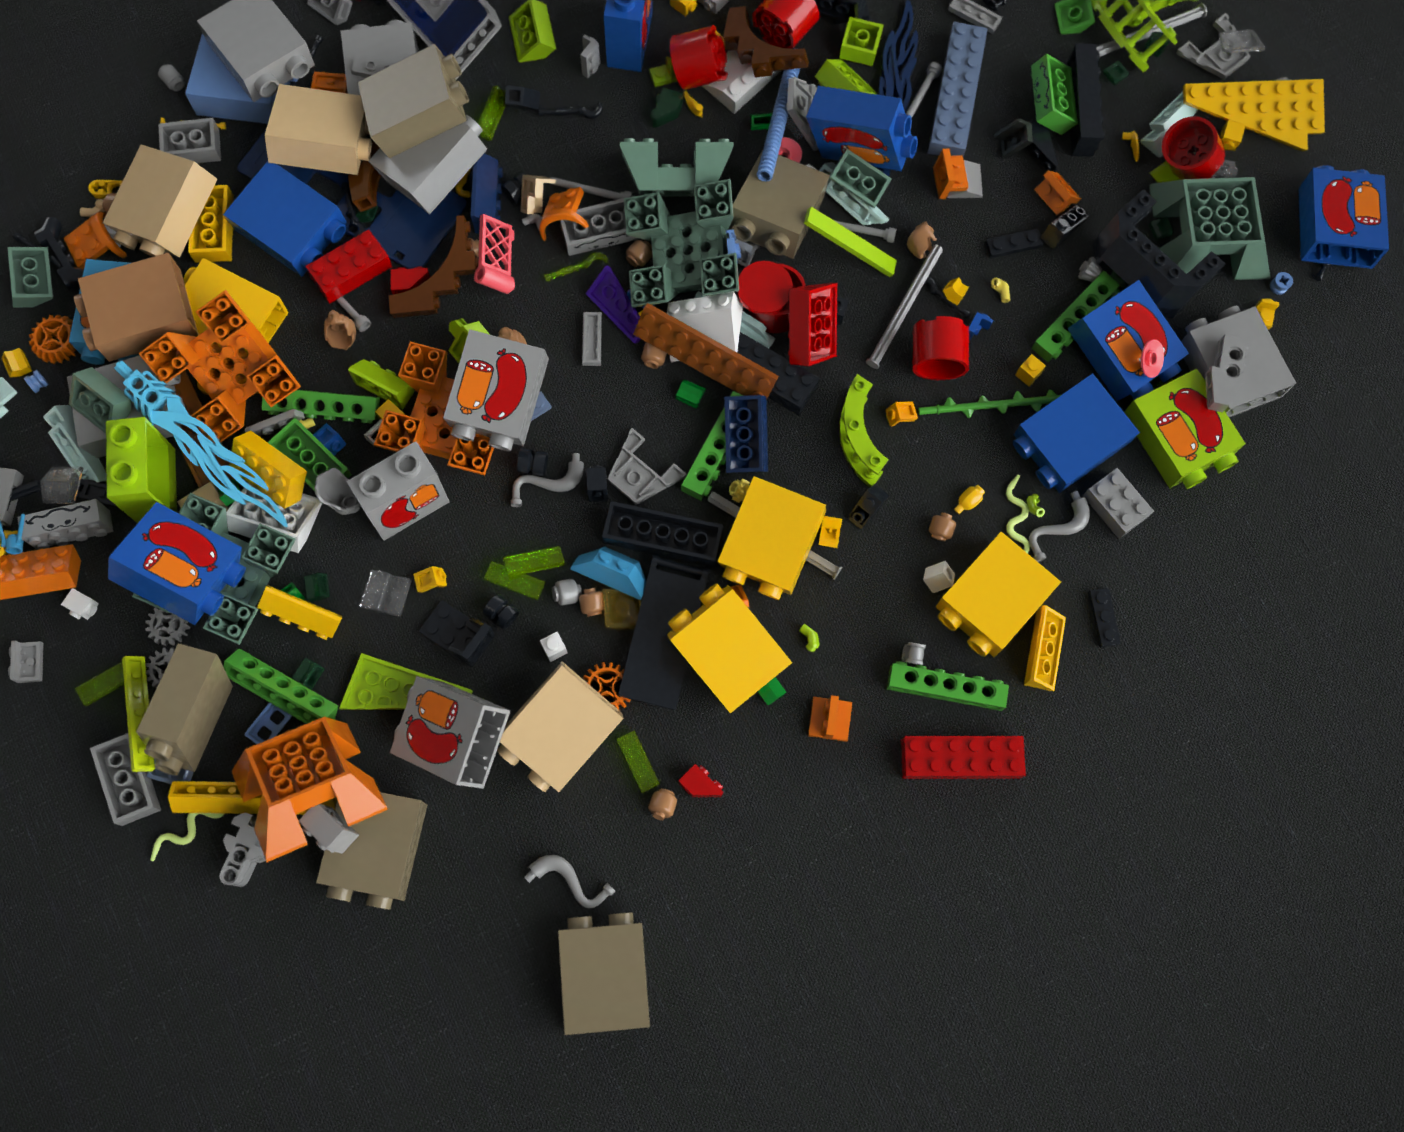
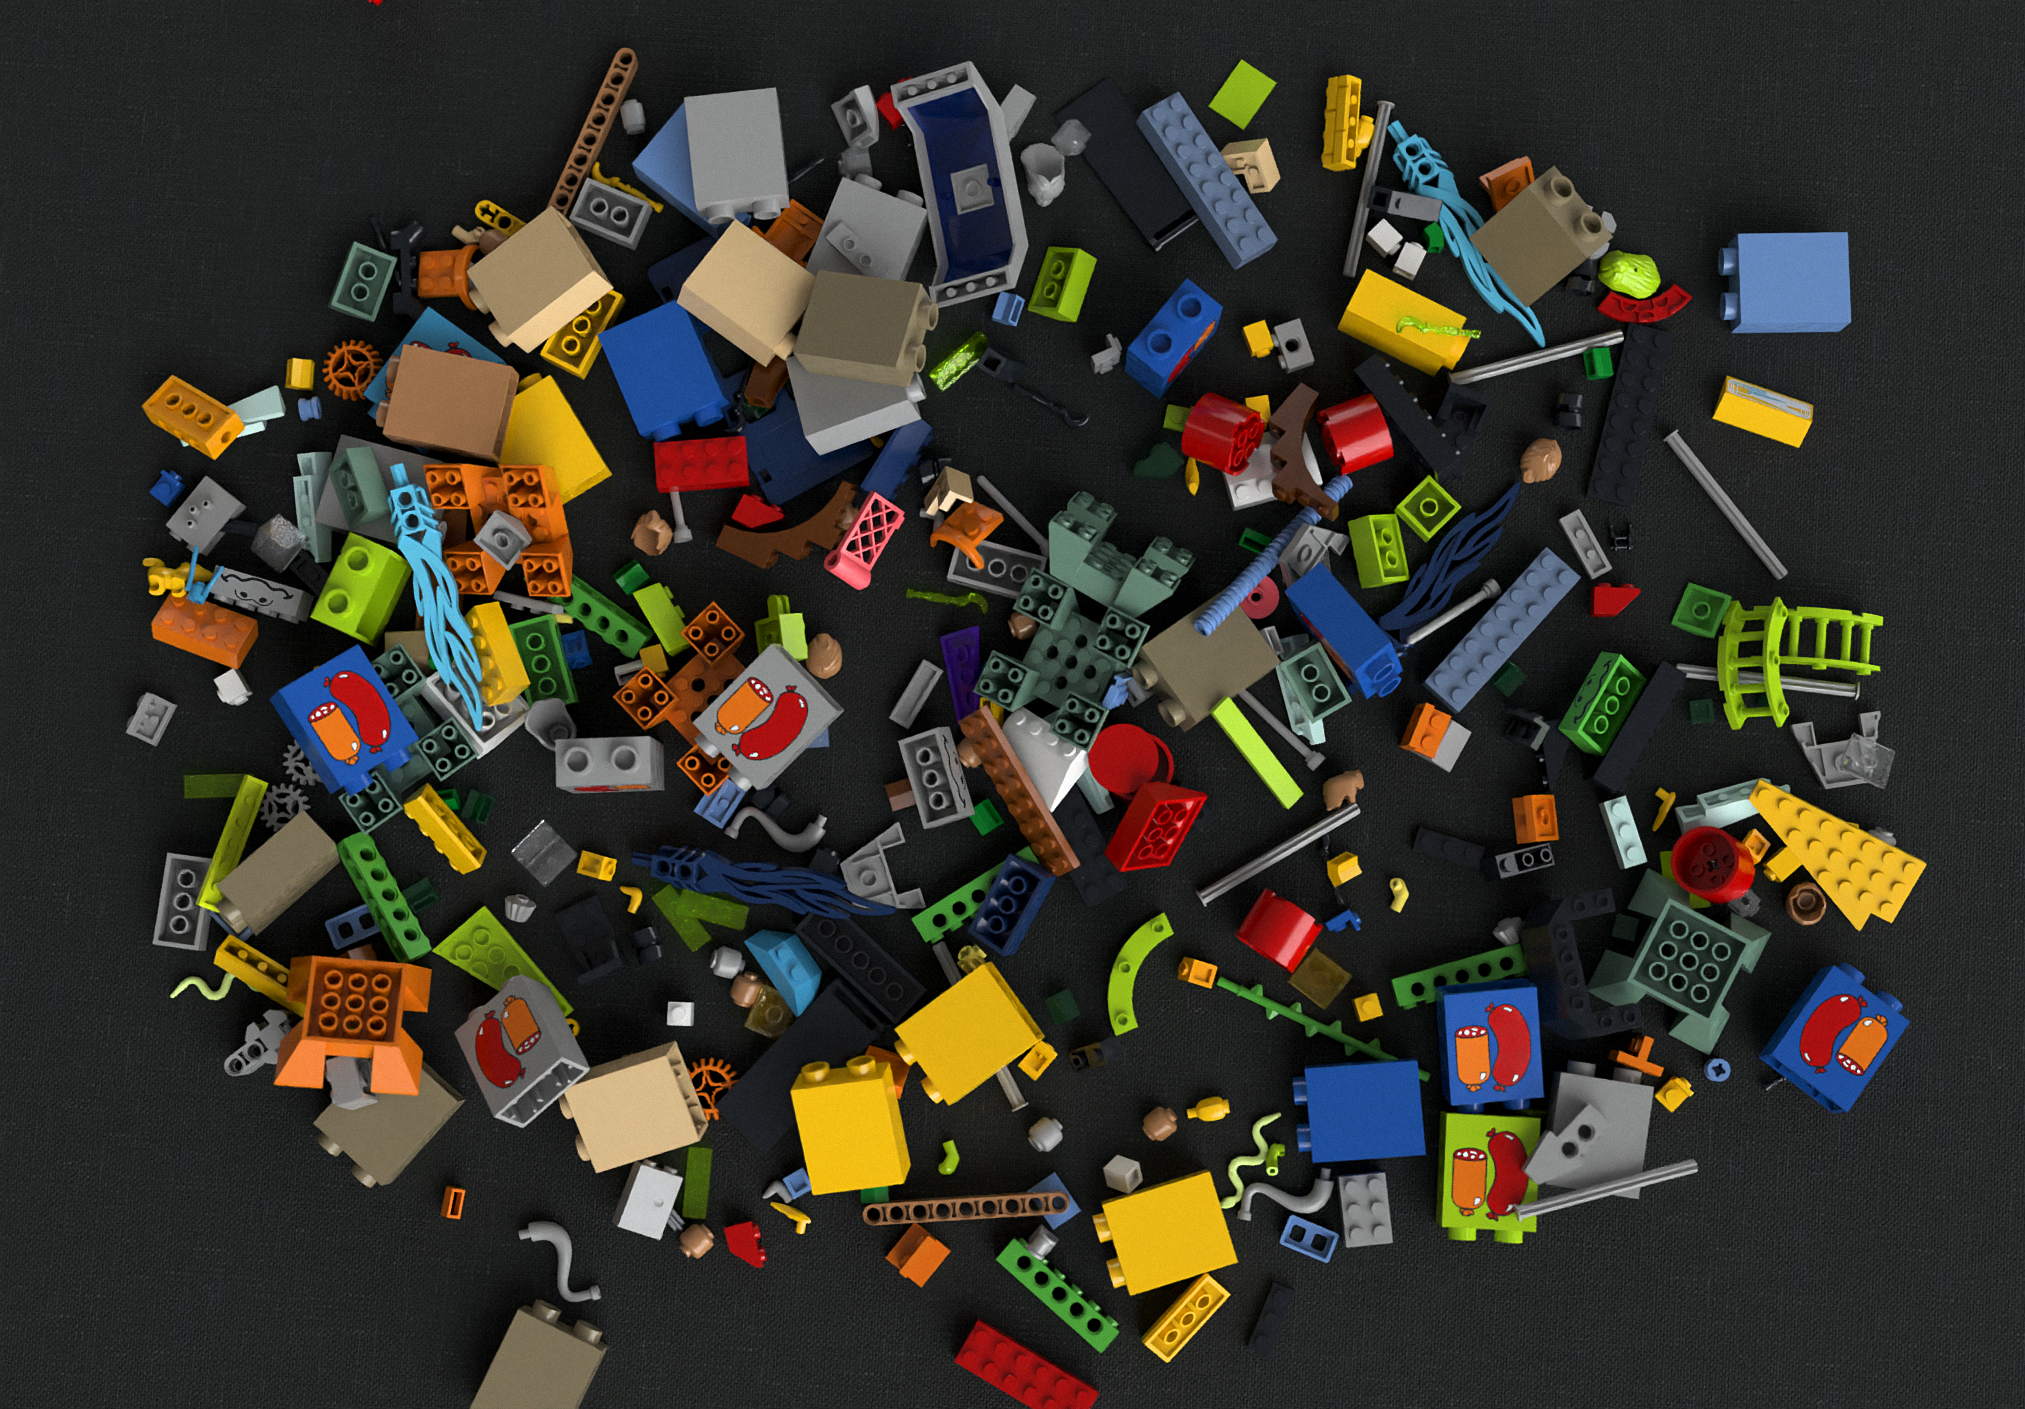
camera: 40 degrees right, 10 degrees up
(148, 91) = (591, 130): none -> medium nougat beam
(228, 377) = (503, 538): none -> light grey slope
(339, 370) = (631, 577): none -> green piece
(344, 23) = (855, 162): none -> clear brick
(388, 640) = (518, 907): none -> light grey piece
(459, 895) = (448, 1199): none -> orange piece
(473, 587) = (636, 897): none -> yellow animal
(495, 485) = (721, 803): none -> medium blue plate
(504, 66) = (1008, 309): none -> medium blue piece
(527, 535) = (769, 890): none -> dark blue piece
(610, 792) = (649, 1200): none -> piece
(622, 408) = (900, 794): none -> reddish brown piece
(640, 380) = (936, 777): none -> light grey brick
(701, 731) = (781, 1189): none -> light grey animal
(712, 718) = (798, 1183): none -> medium blue plate
(730, 742) = (795, 1214): none -> yellow bar
(824, 487) = (1062, 1007): none -> clear green piece
(850, 654) = (955, 1212): none -> medium nougat beam
(868, 580) = (1045, 1134): none -> light grey head
(902, 624) = (1052, 1183): none -> medium blue plate
(981, 118) = (1507, 678): none -> clear green piece
(986, 370) = (1320, 978): none -> clear yellow slope
(1012, 37) = (1609, 601): none -> red slope
(1090, 540) = (1305, 1245): none -> medium blue piece
(1119, 169) = (1623, 832): none -> light aqua brick
(1152, 358) = (1491, 1083): coral dish -> none
(1228, 296) = (1639, 1051): none -> orange bracket
(1228, 433) = (1605, 1189): none -> light grey axle
(1264, 150) = (1805, 903): none -> medium nougat hair

